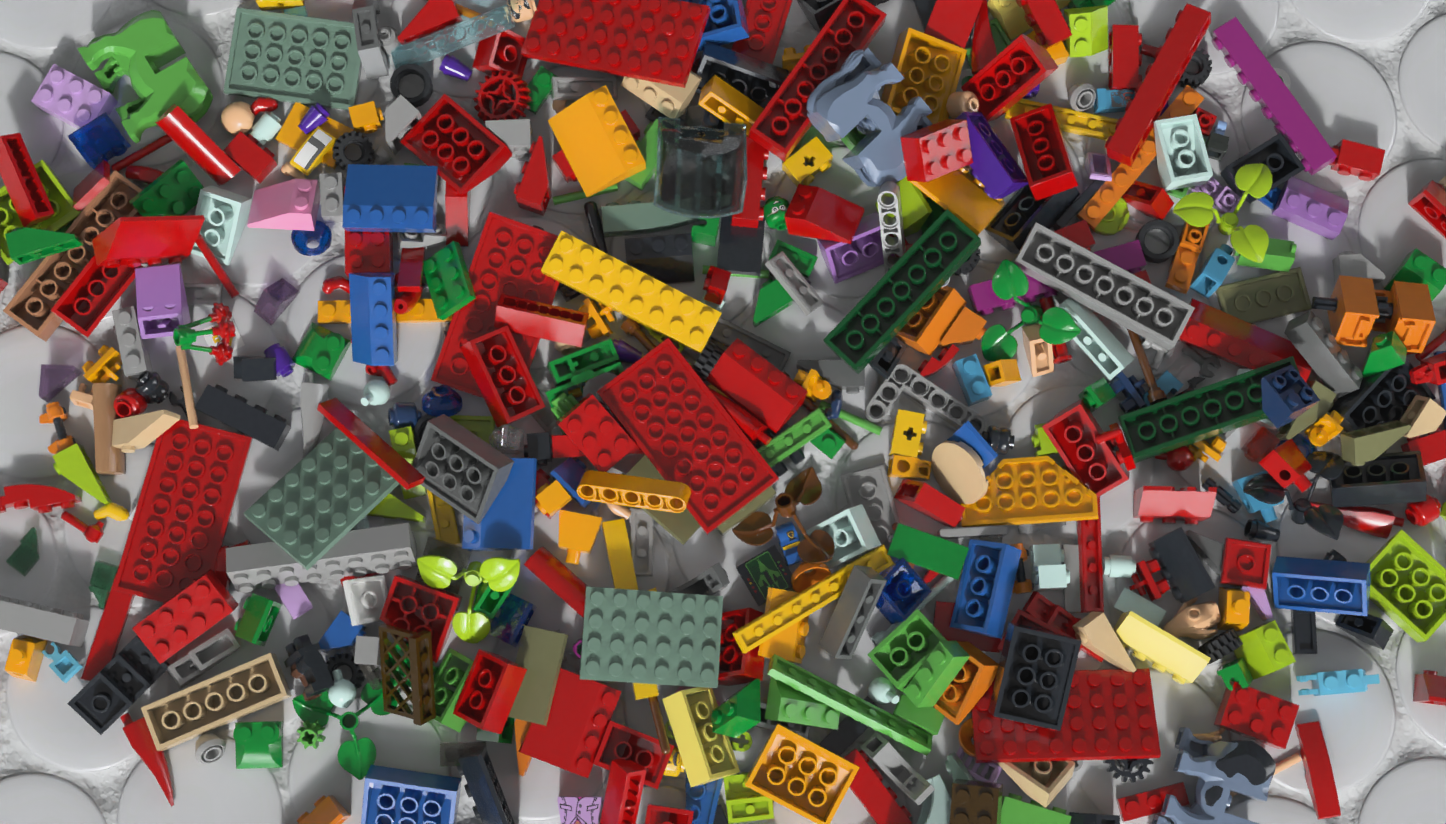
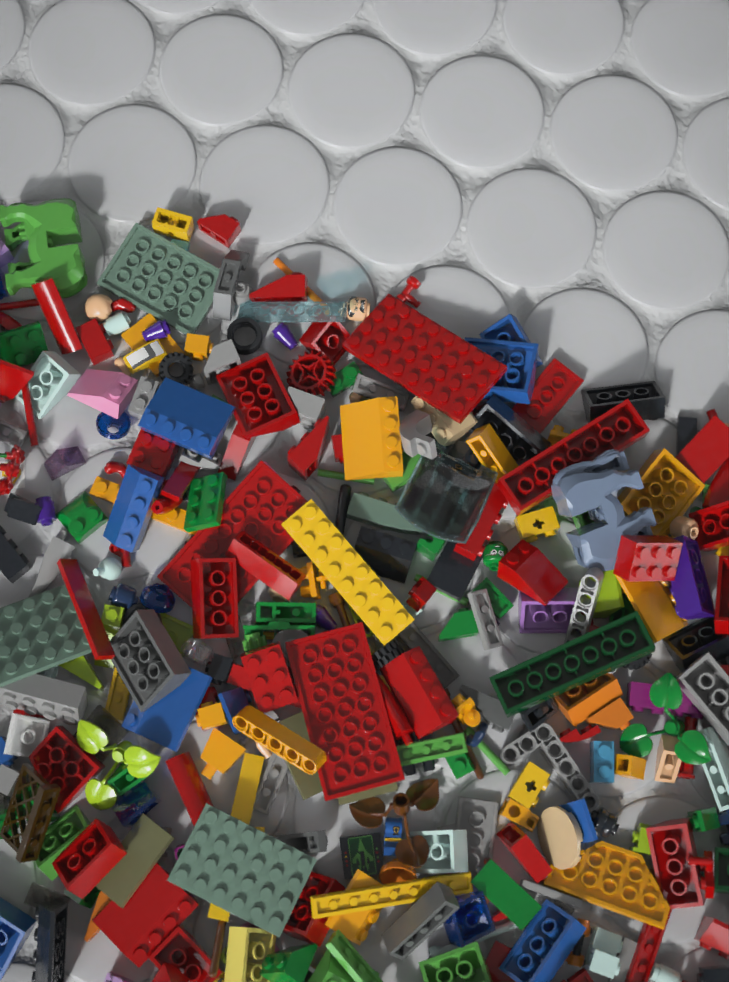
camera: 25 degrees right, 5 degrees down
(639, 118) = (413, 435): none -> light grey arch

